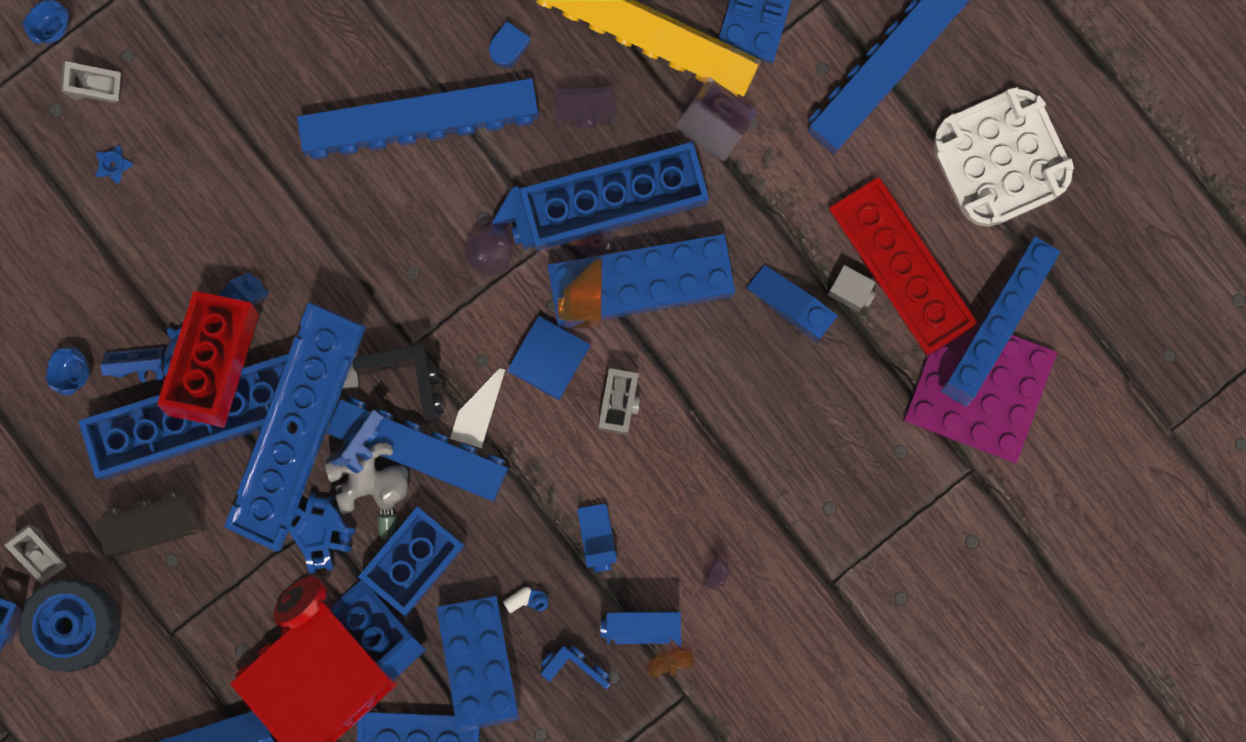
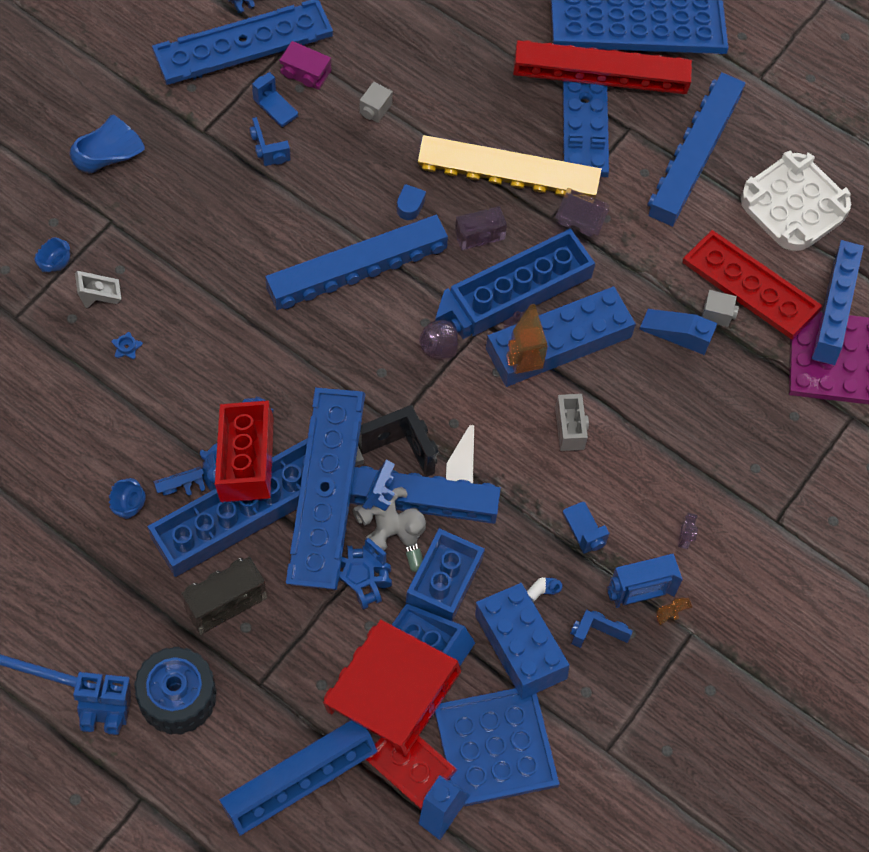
camera: 15 degrees left, 20 degrees down
(35, 553) = (131, 640): light grey slope -> none
(299, 602) = (363, 627): red tile -> none
(548, 358) = (506, 406): blue slope -> none

